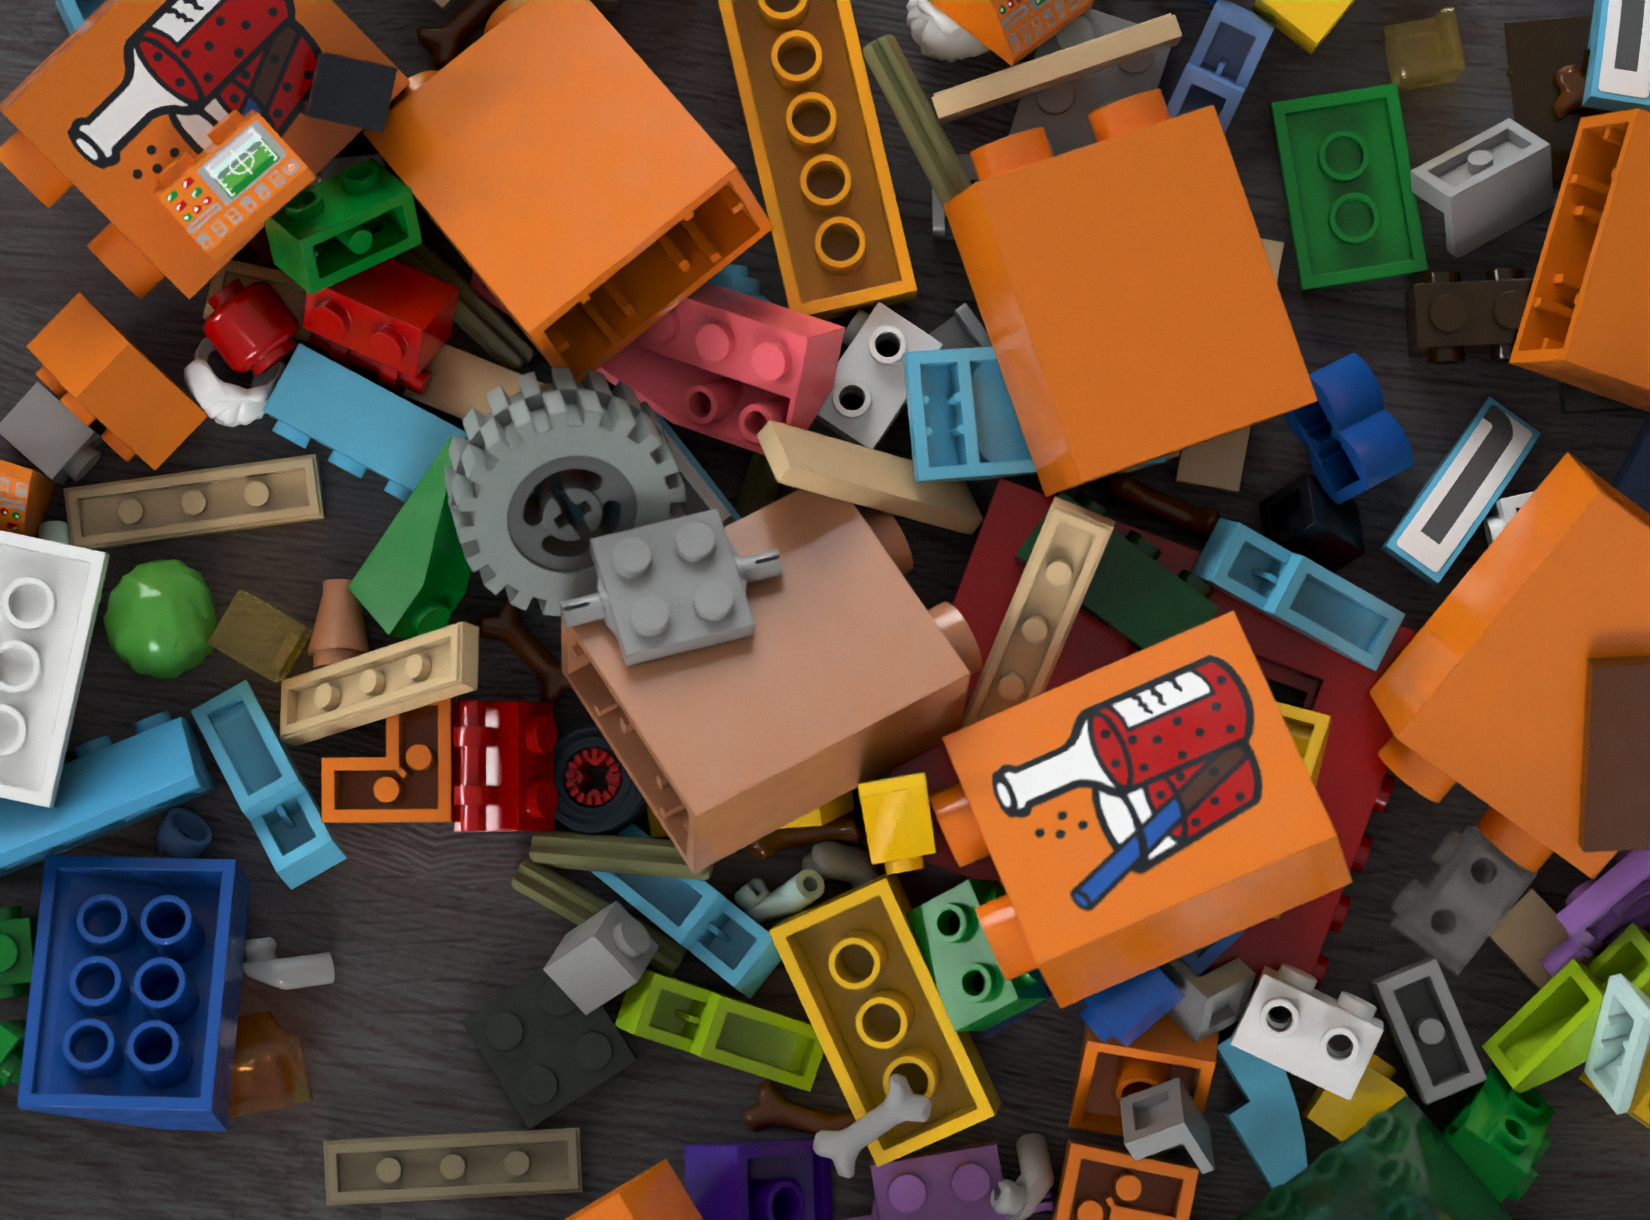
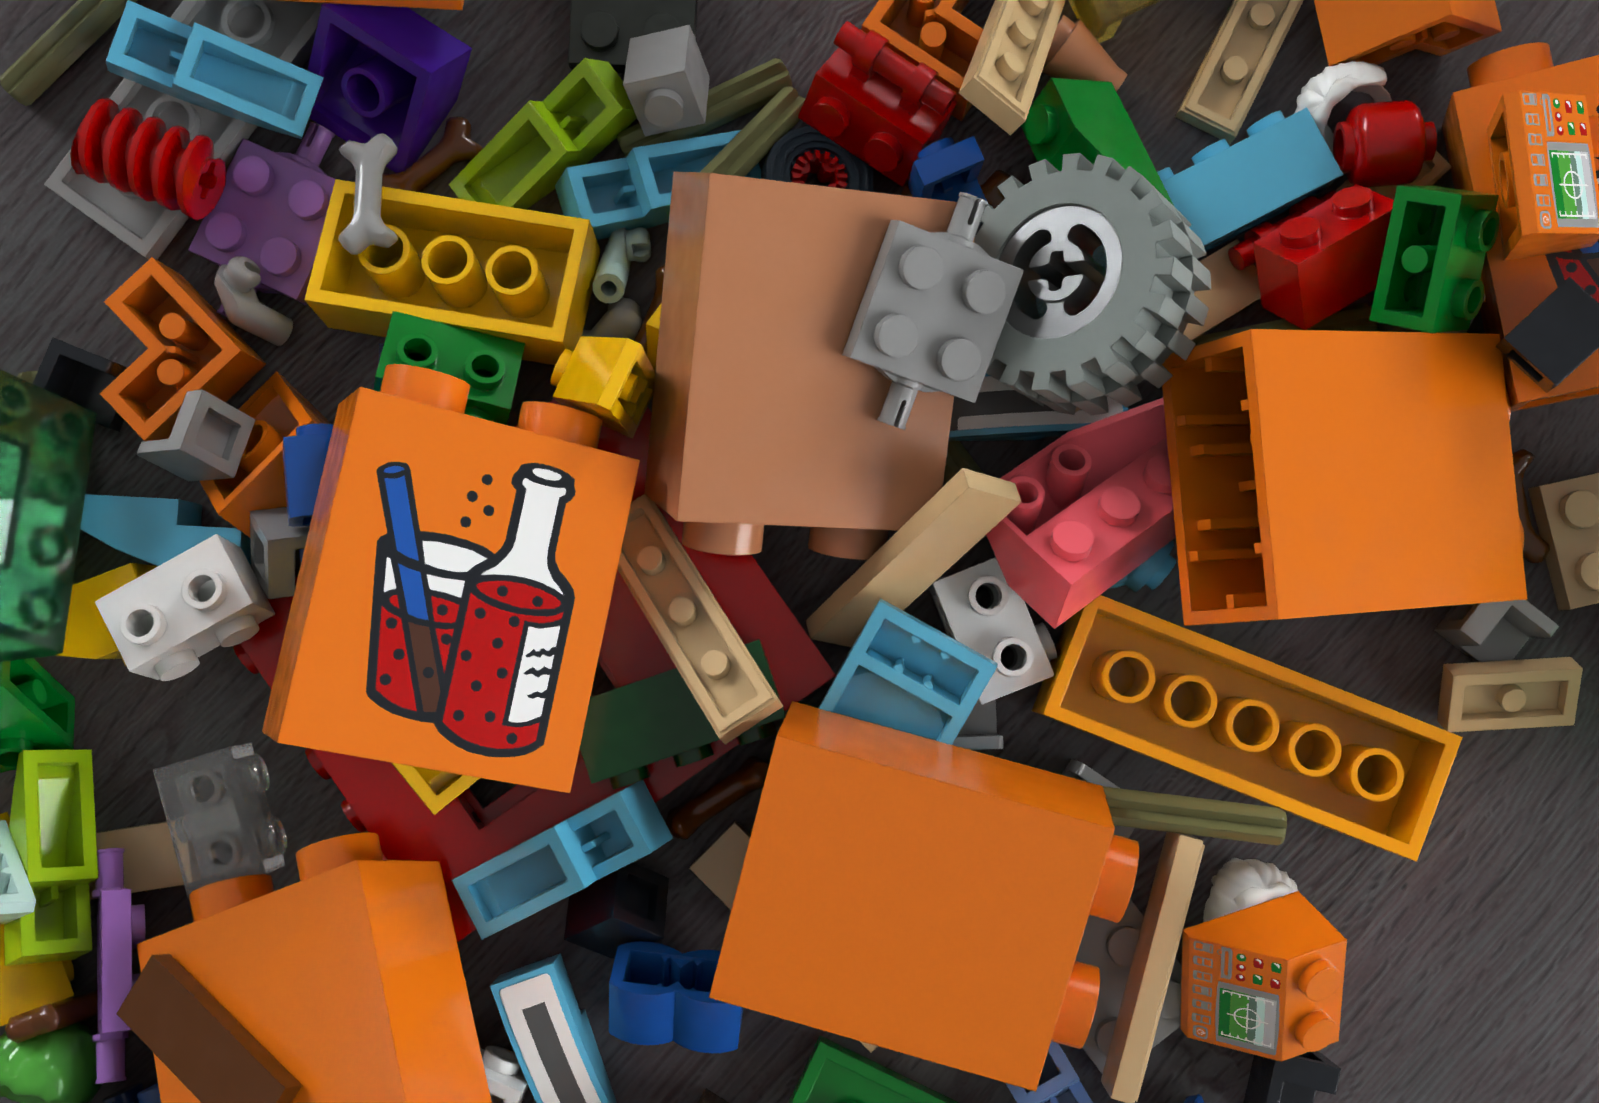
camera: 115 degrees right, 0 degrees up
(530, 659) = (947, 169): none -> blue bracket
(1427, 1030) = (131, 713): light grey brick -> none

